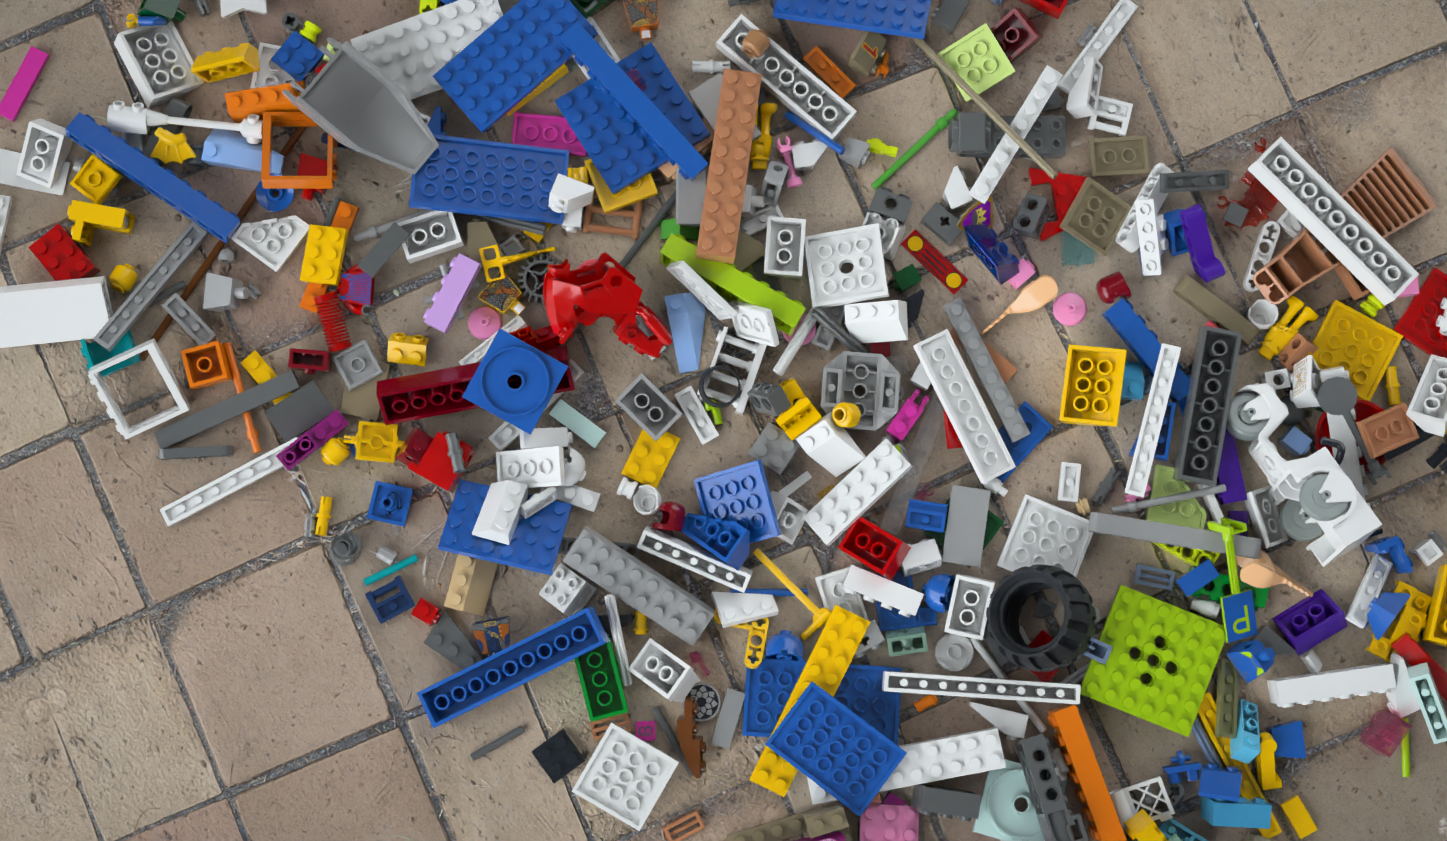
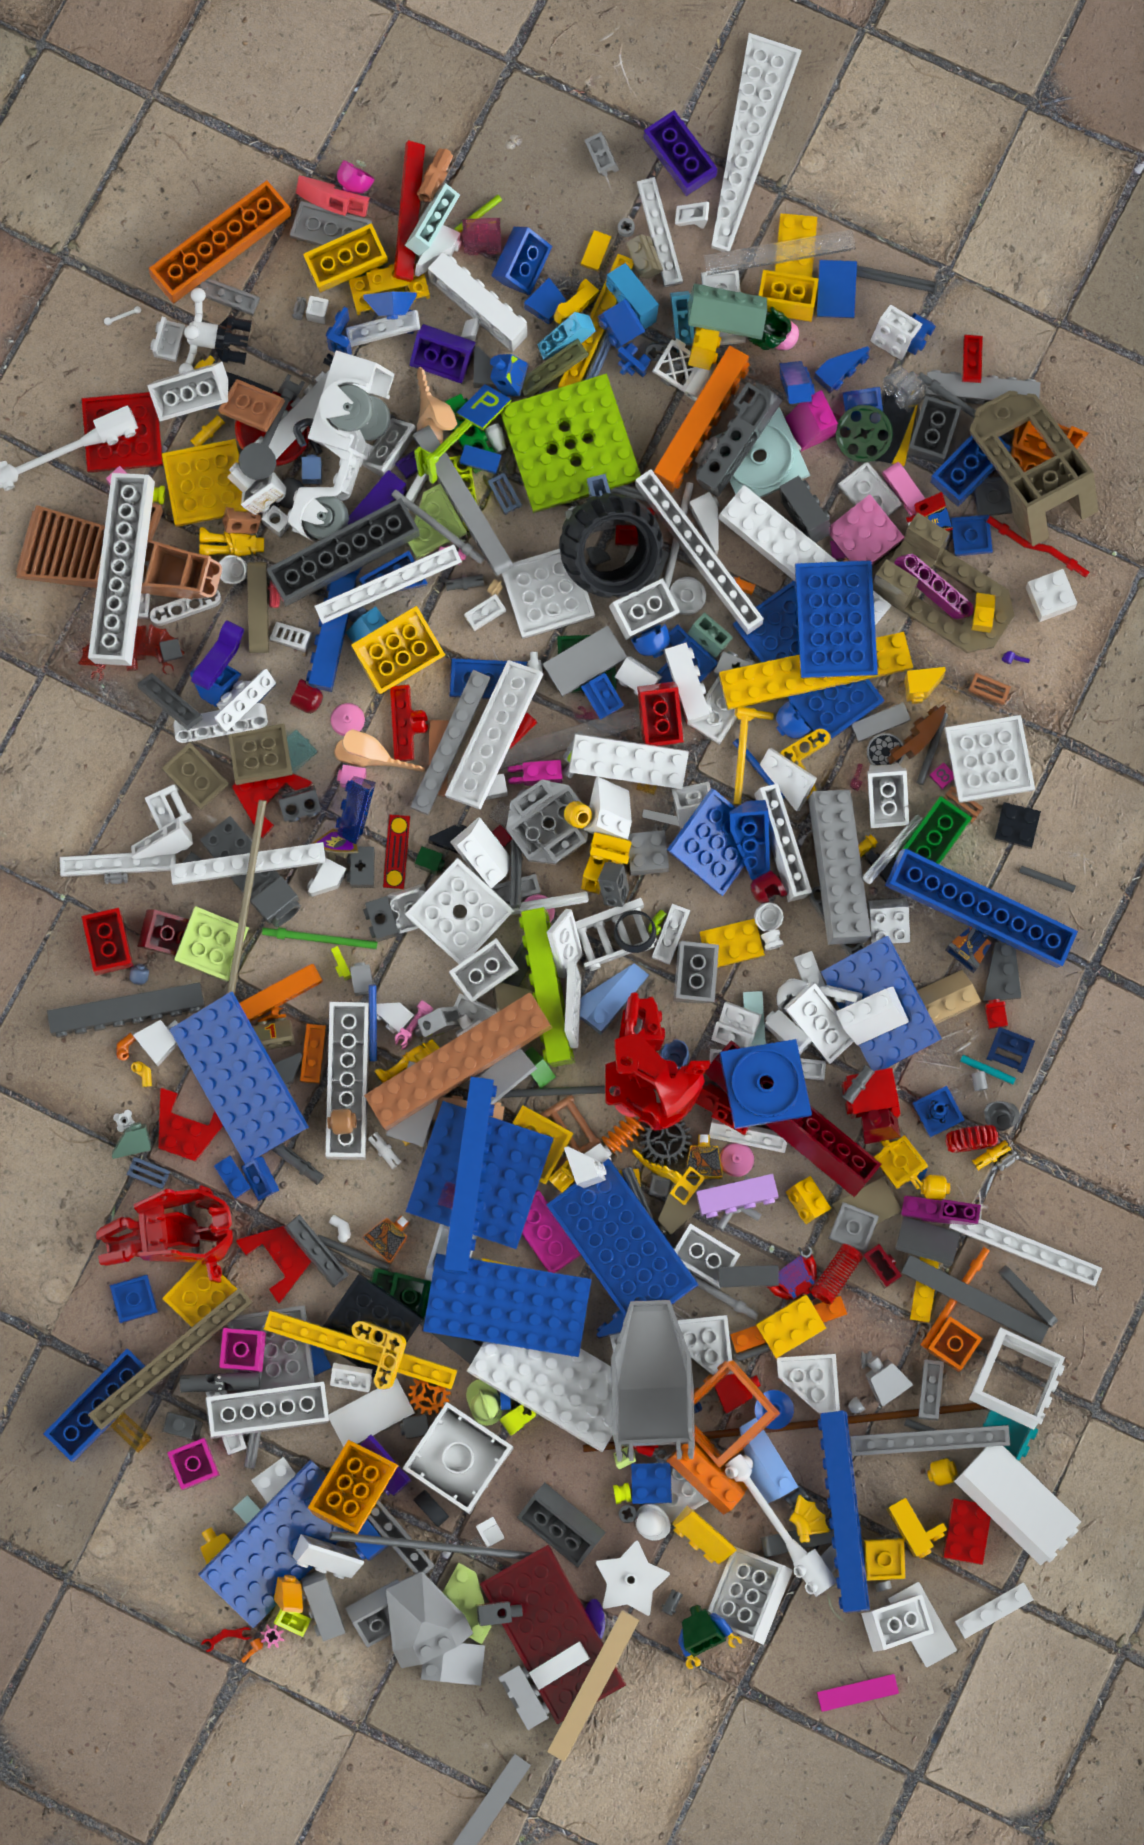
camera: 125 degrees left, 5 degrees down
(270, 34) = (652, 1522): none -> white hat
(346, 509) = (971, 1138): none -> red gear
(368, 184) = (707, 1341): none -> white plate
(573, 248) = (622, 1134): none -> orange piece
(583, 404) = (736, 1025): none -> white slope
(600, 339) = (677, 1052): none -> medium blue hair
(730, 774) = (921, 683): none -> yellow slope
(831, 40) = (289, 1068): none -> dark grey slope
(896, 81) = (281, 992): none -> orange beam
(1030, 348) = (405, 723): none -> red plate
(1159, 325) = (301, 647): none -> white slope
(1338, 749) = (522, 260): none -> blue slope

